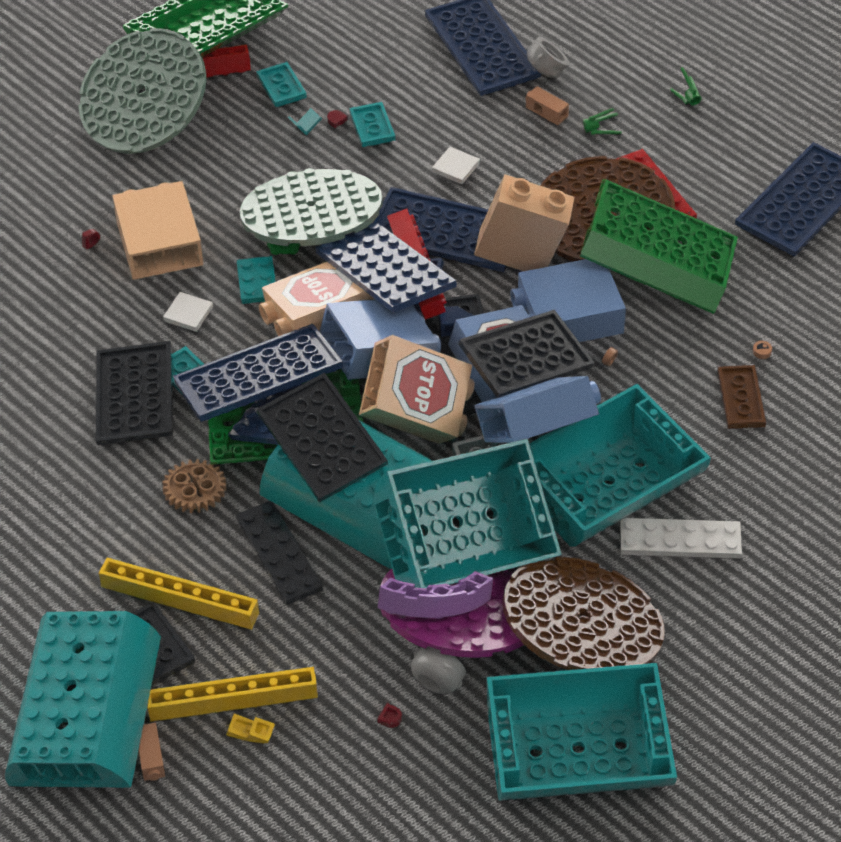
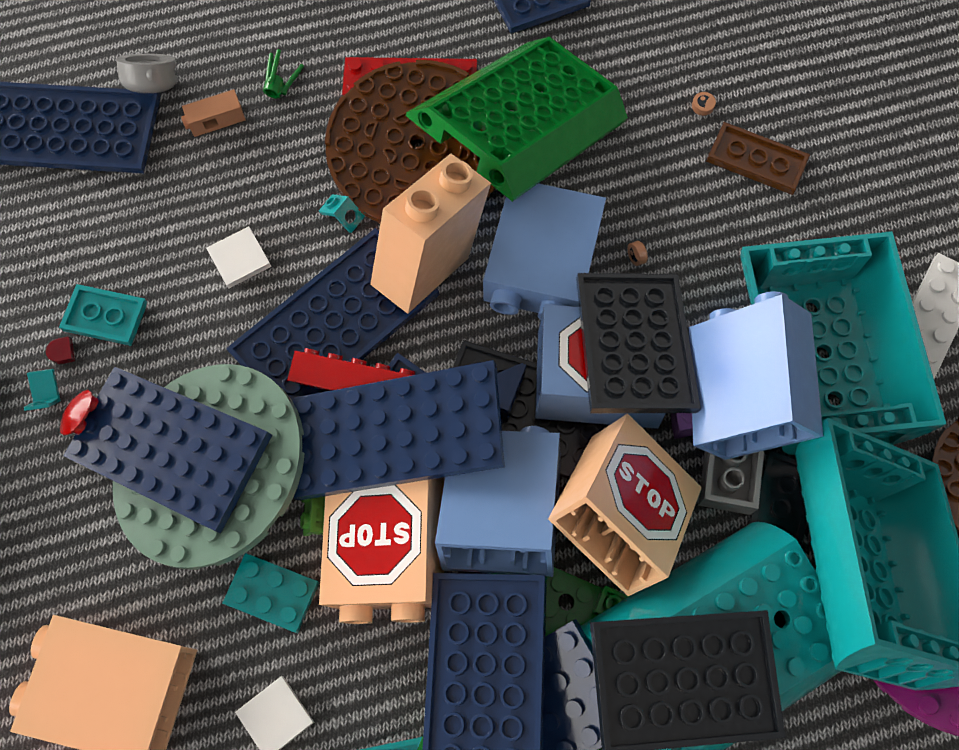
camera: 60 degrees left, 20 degrees up
(296, 141) = (76, 412): none -> red dish
(308, 184) = (169, 448): none -> dark blue plate

